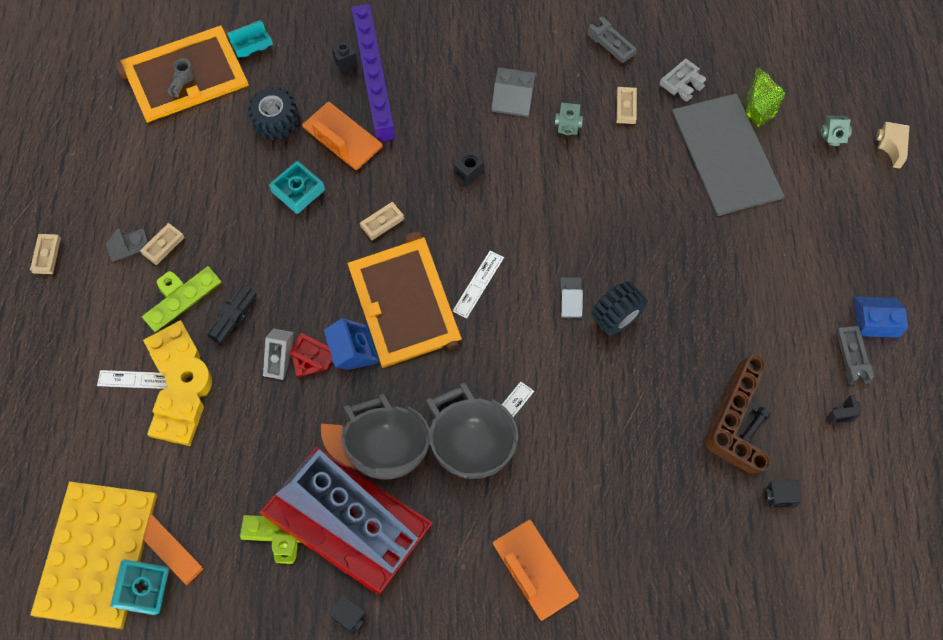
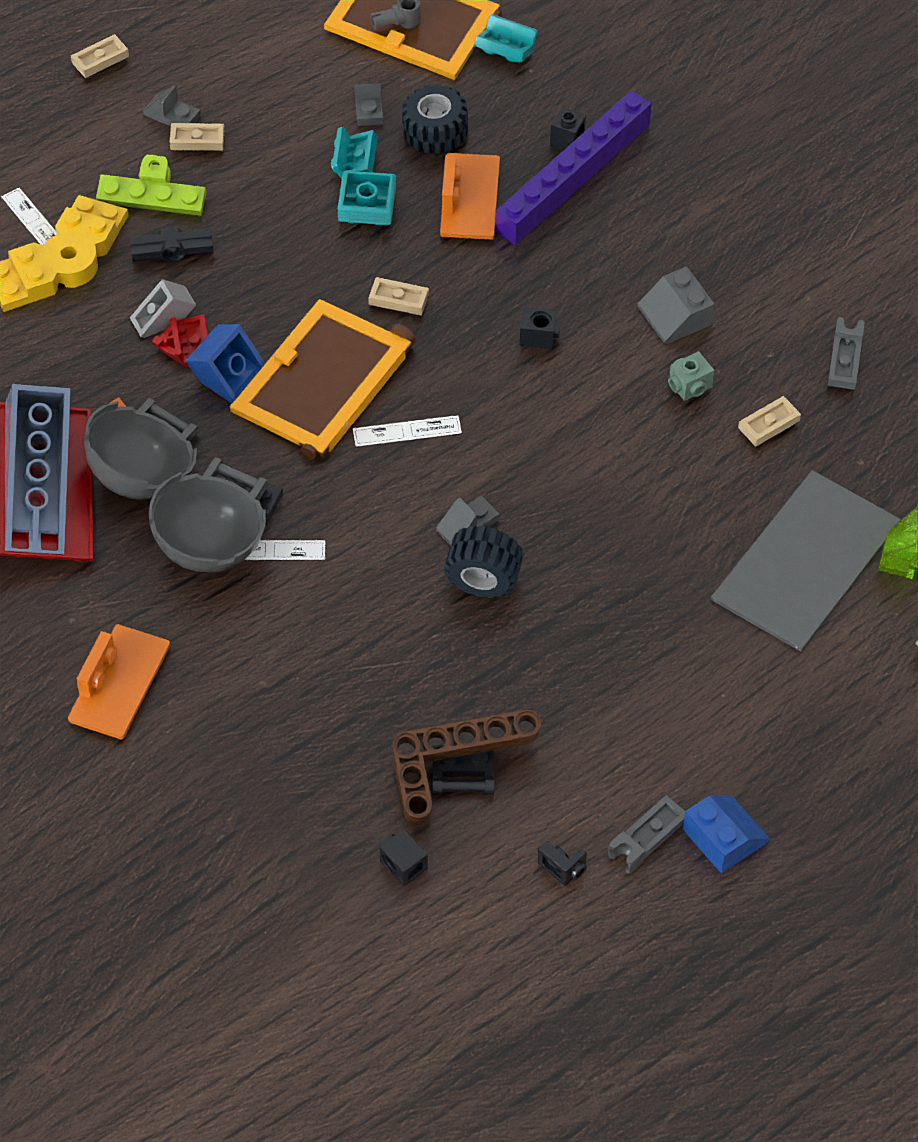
camera: 50 degrees right, 10 degrees down
(224, 138) = (368, 104): none -> dark grey slope
(258, 170) = (354, 152): none -> teal bracket
(682, 74) = (862, 448): light grey plate -> none

